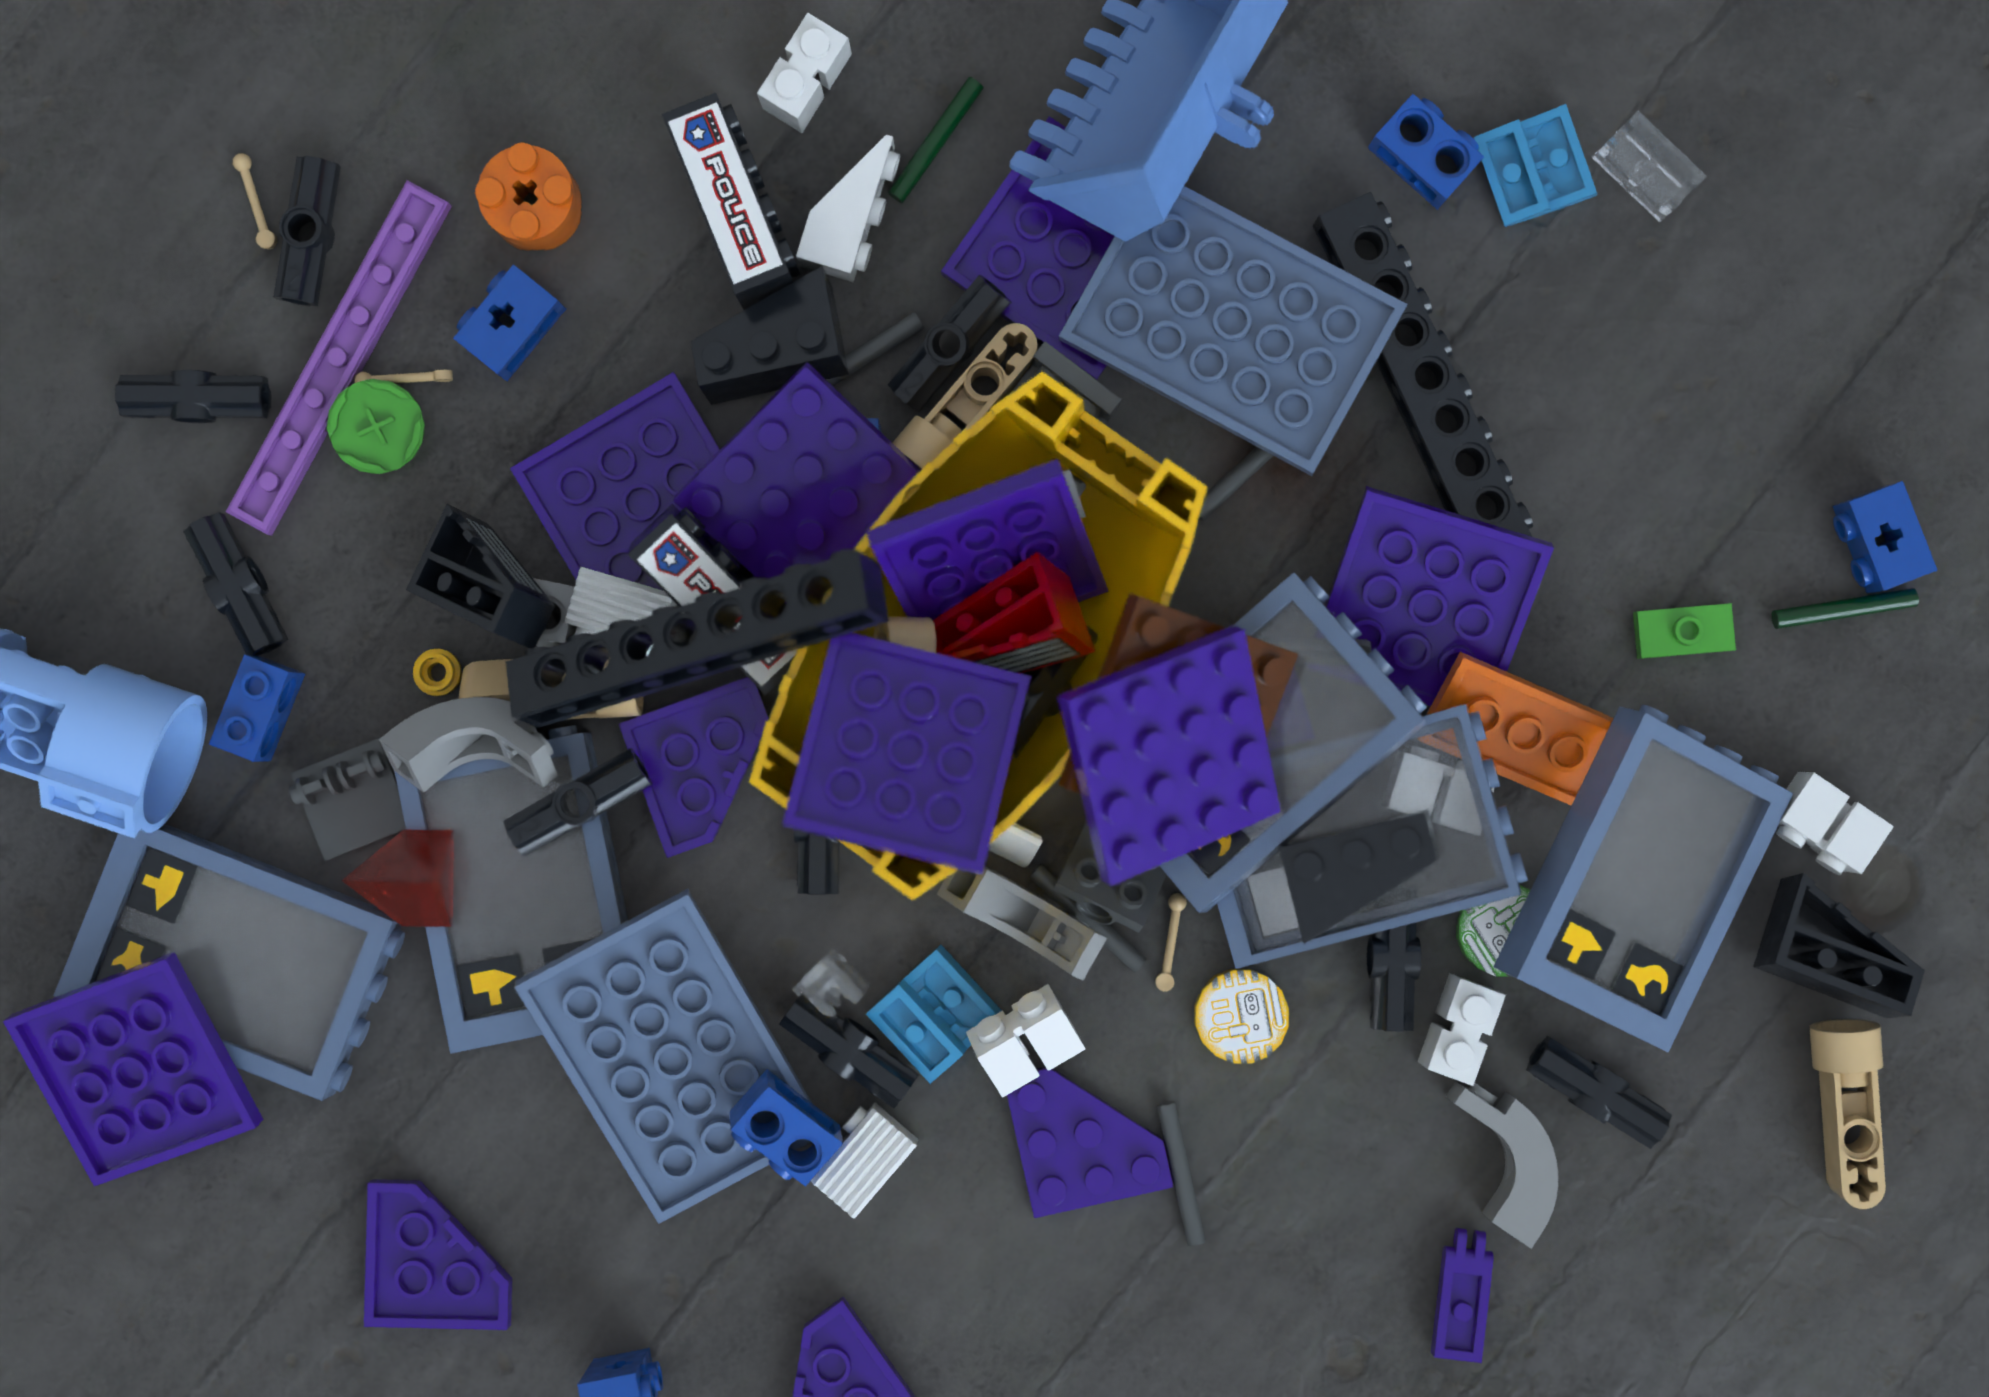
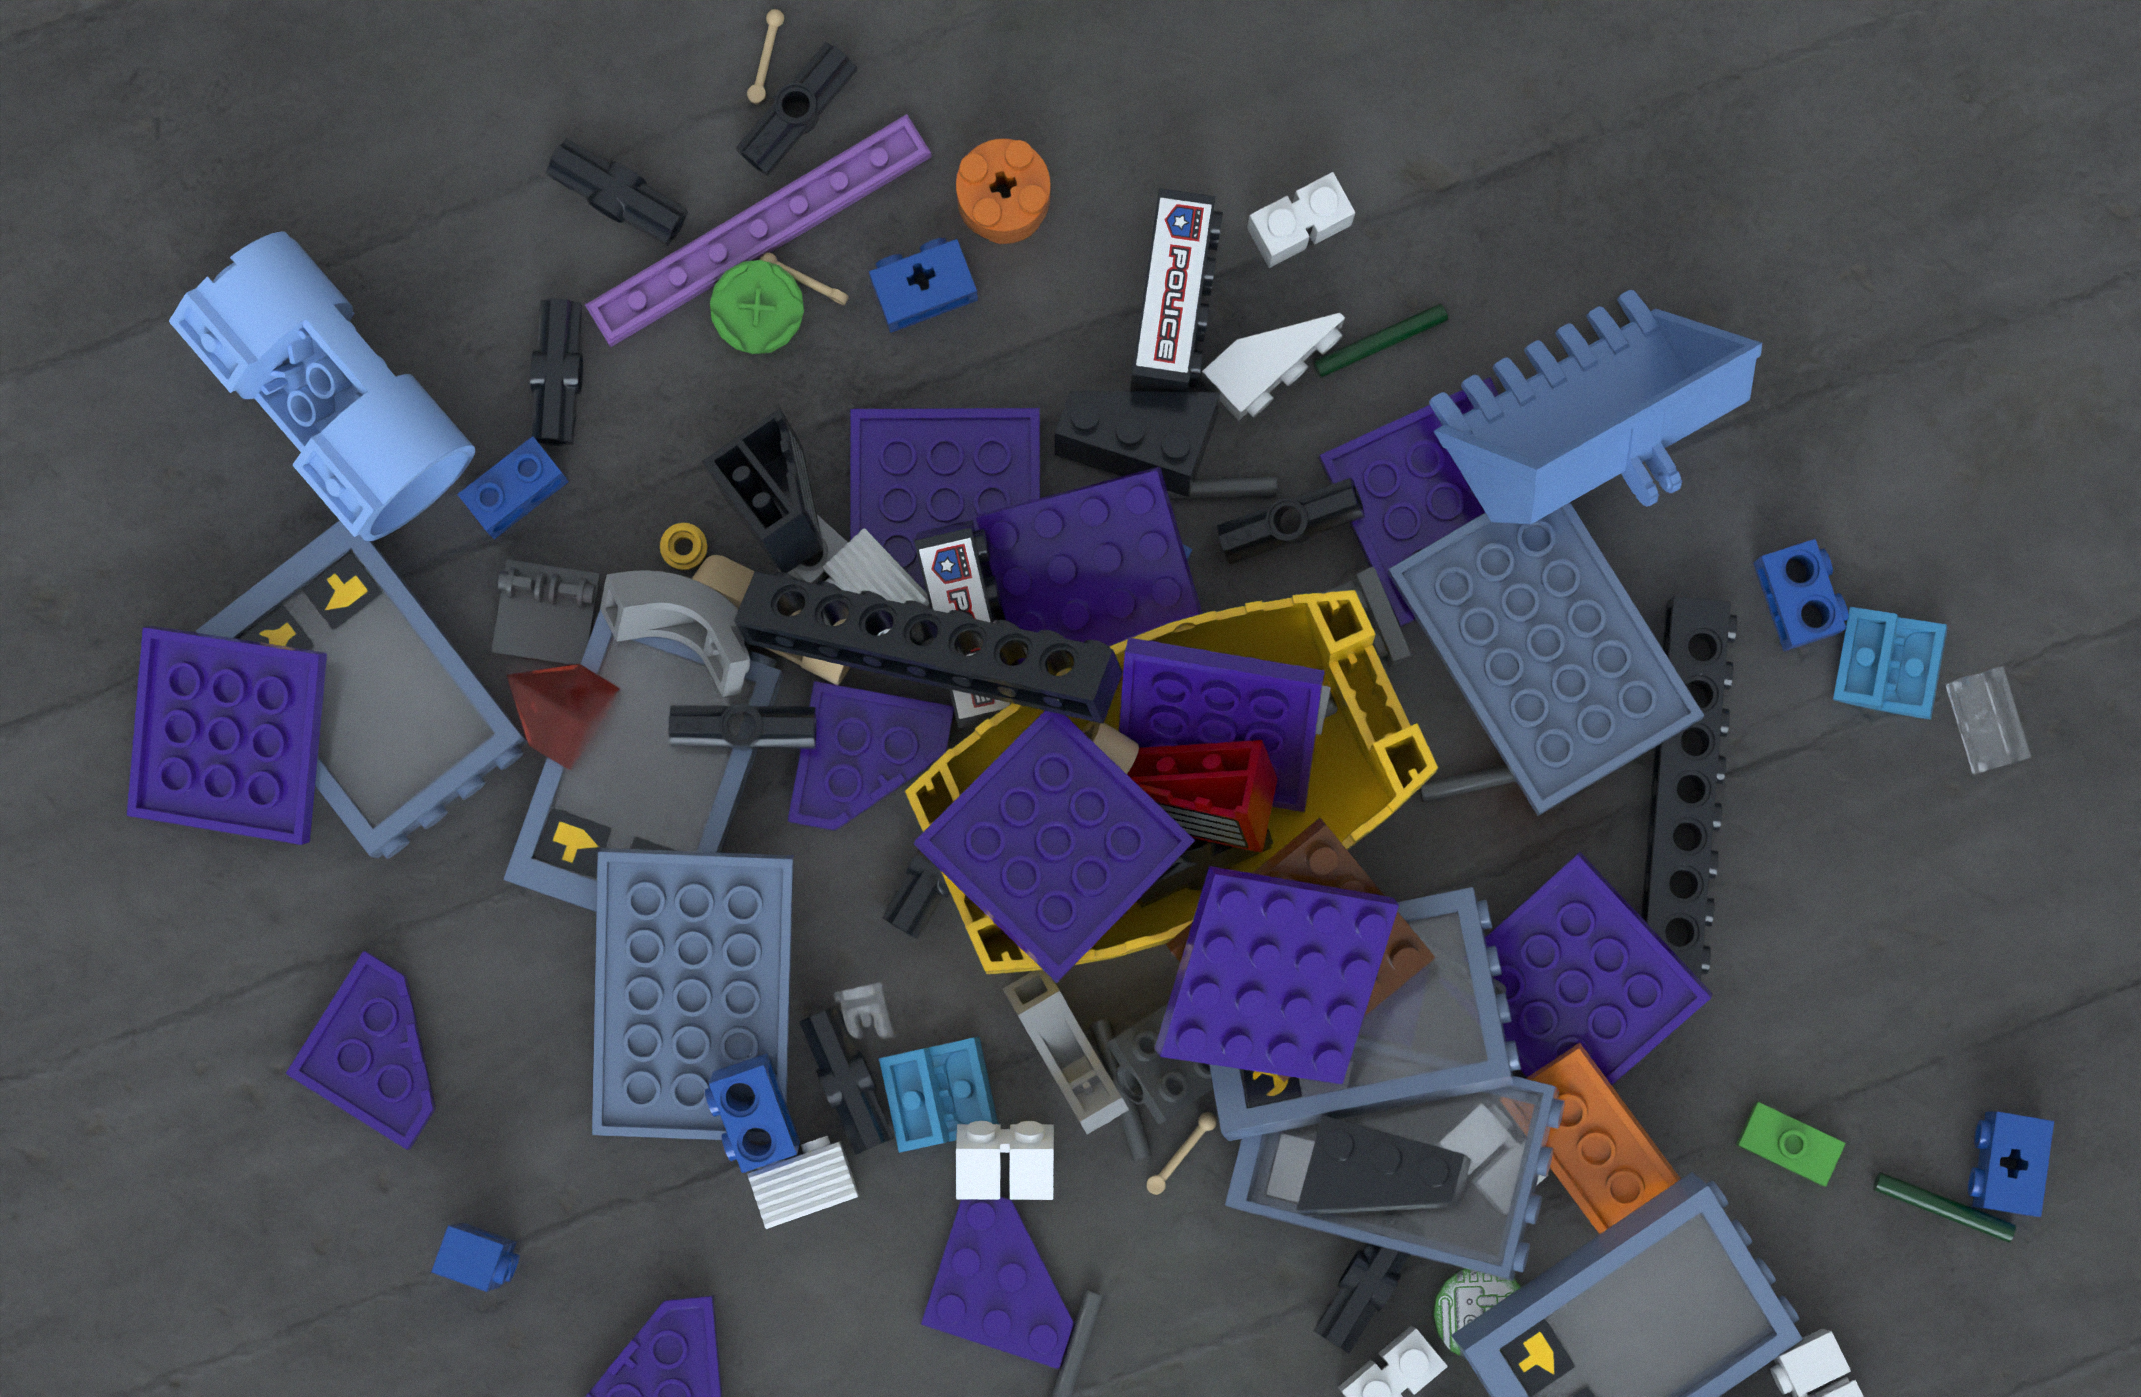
camera: 30 degrees right, 5 degrees down
(926, 438) = (1226, 590): tan beam -> none
(1017, 845) = (1095, 985): white slope -> none
(1241, 1016) = (1205, 1254): tile -> none

